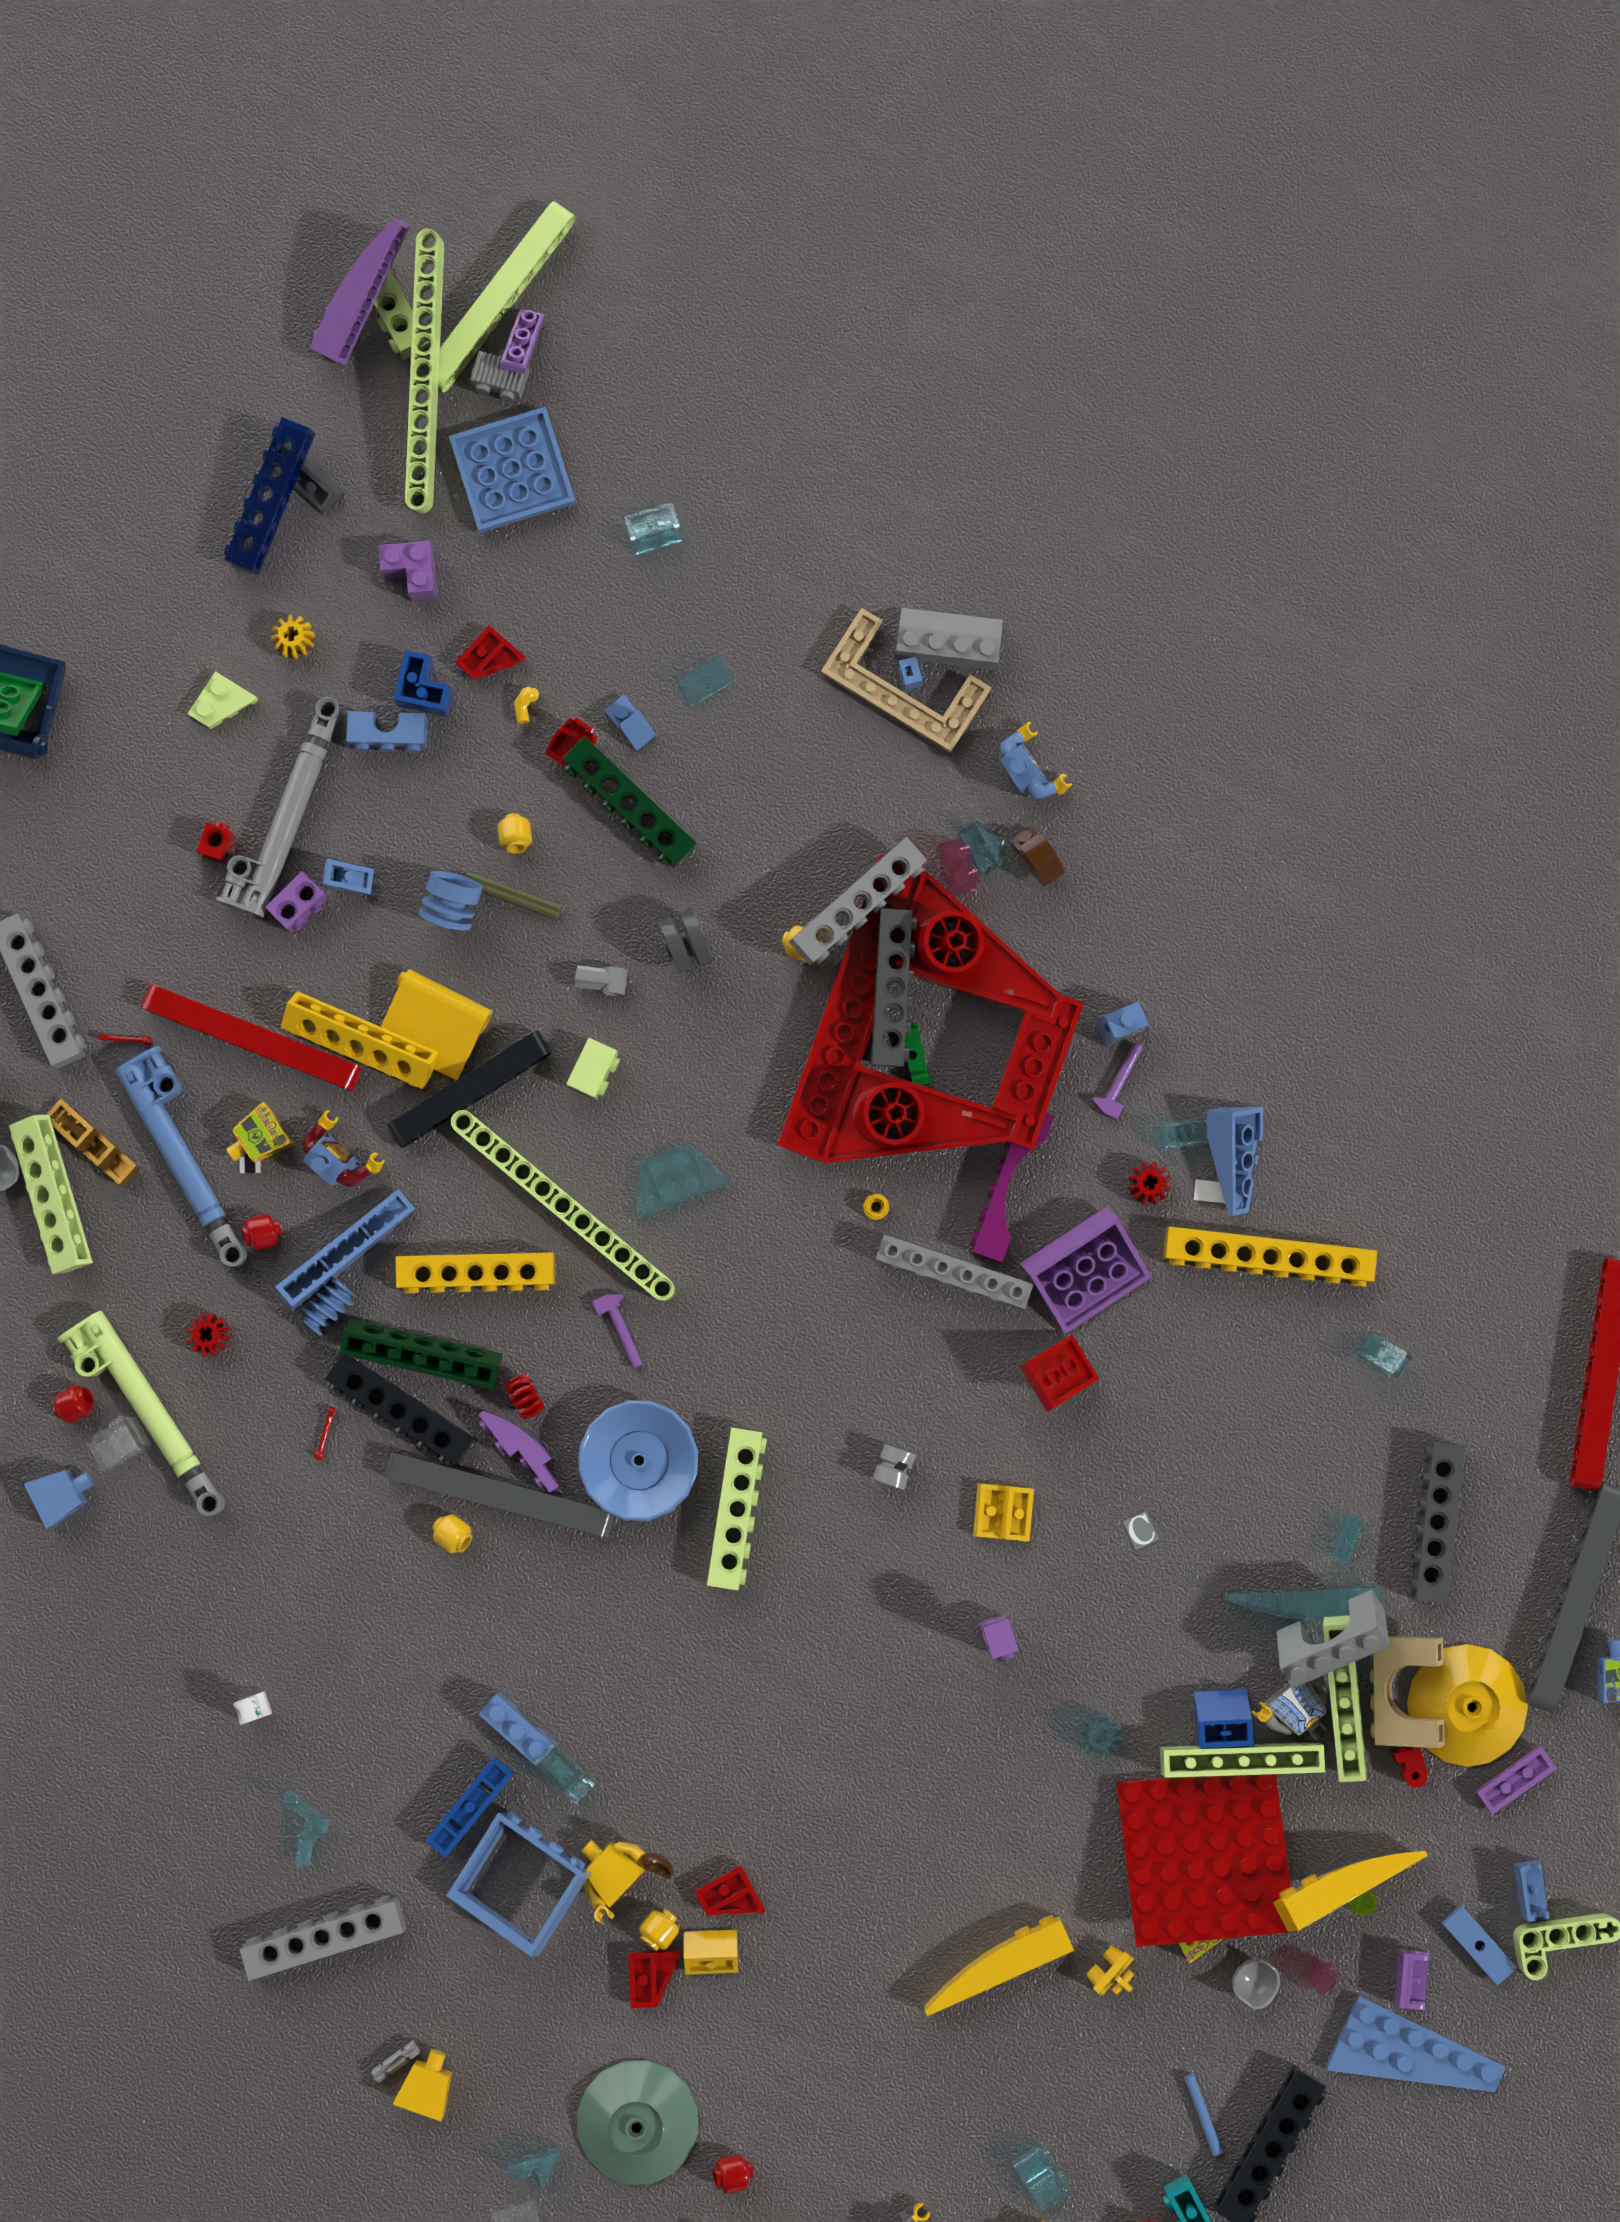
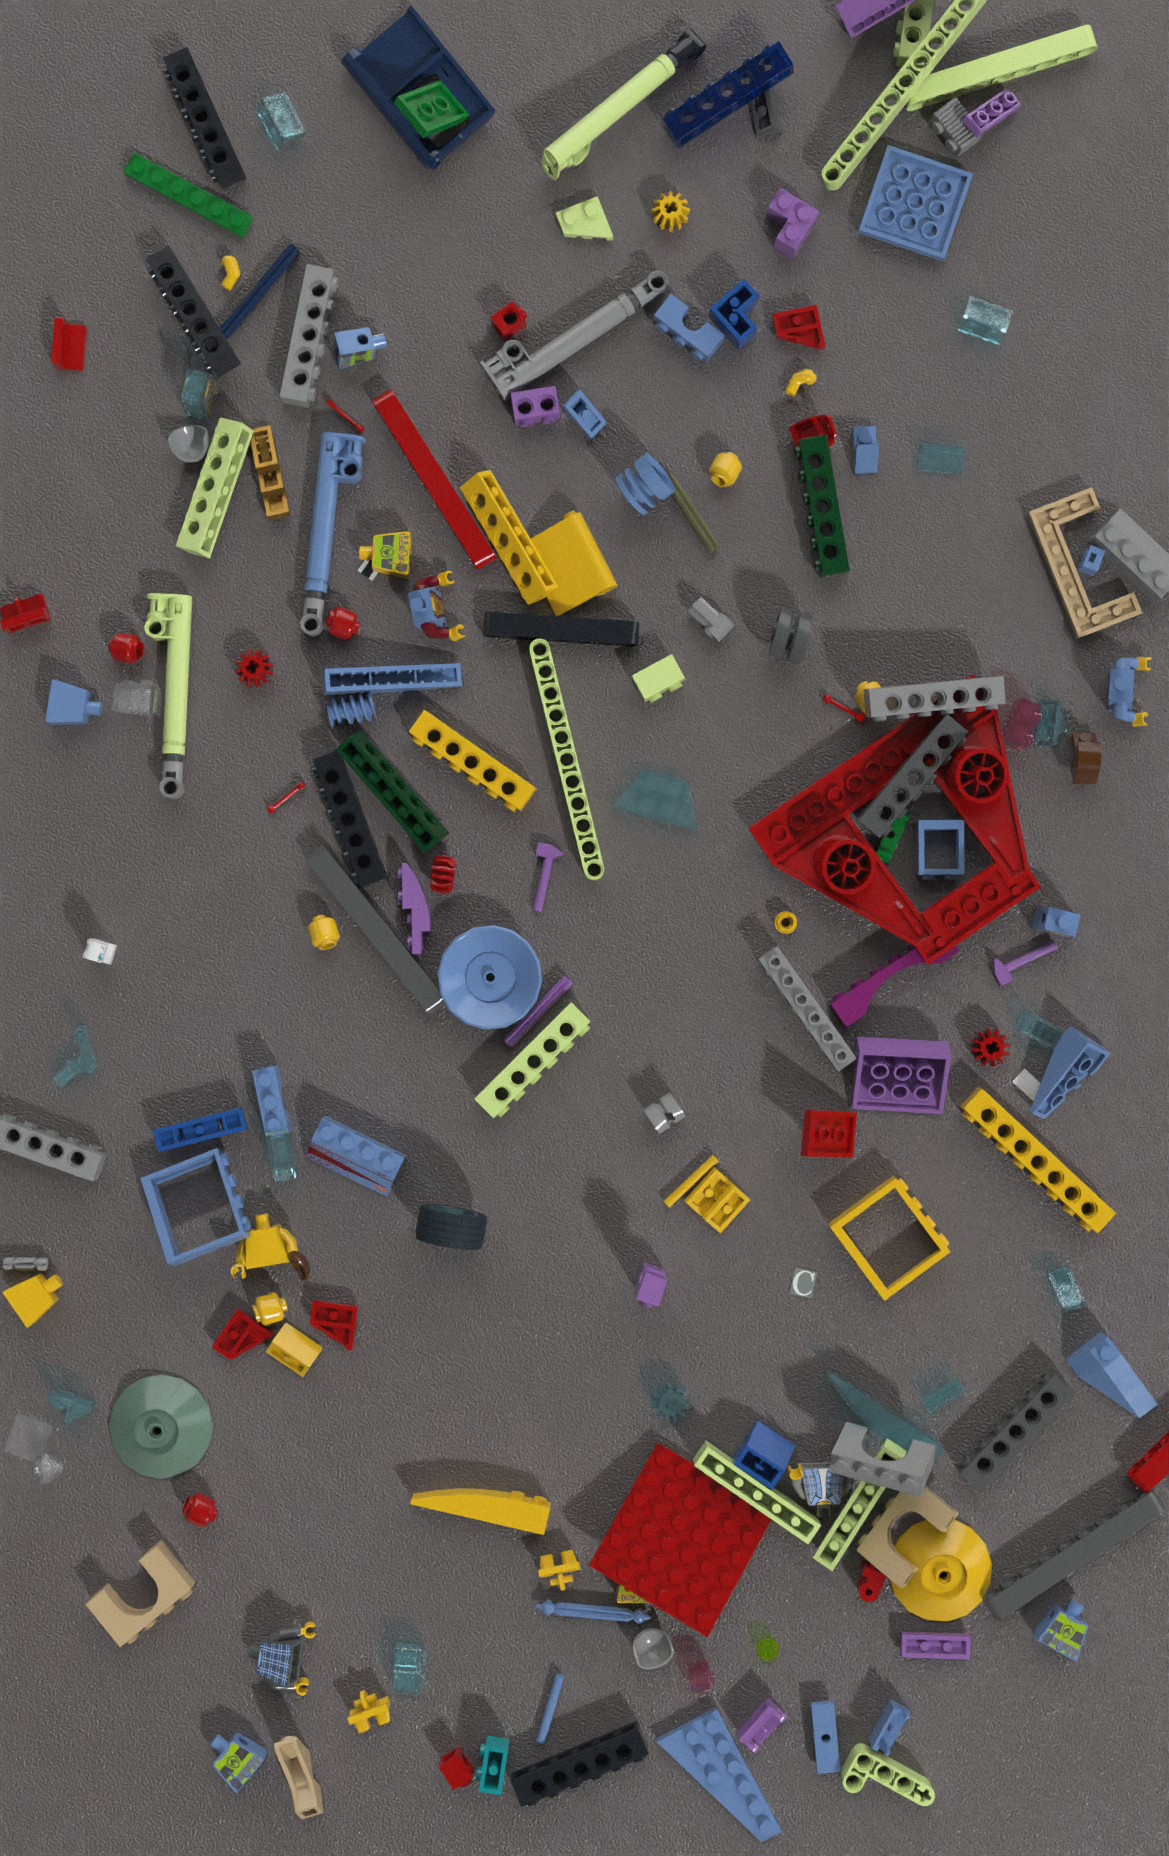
camera: 40 degrees right, 5 degrees up
(90, 968) = (356, 346): none -> medium blue torso
(161, 639) = (575, 143): none -> yellowish green piece
(634, 1723) = (355, 1155): none -> medium blue slope
(707, 1459) = (538, 1011): none -> medium lavender axle
(772, 1721) = (451, 1227): none -> black wheel
(805, 969) = (859, 717): none -> red hinge
(950, 1014) = (939, 825): none -> medium blue window
(966, 1512) = (690, 1181): none -> yellow bar
(1175, 1990) = (593, 1611): none -> medium blue wheel
(1210, 1388) = (915, 1206): none -> yellow window
(1333, 1889) = (757, 1628): yellow slope -> none
(1478, 1402) = (1107, 1371): none -> medium blue wedge

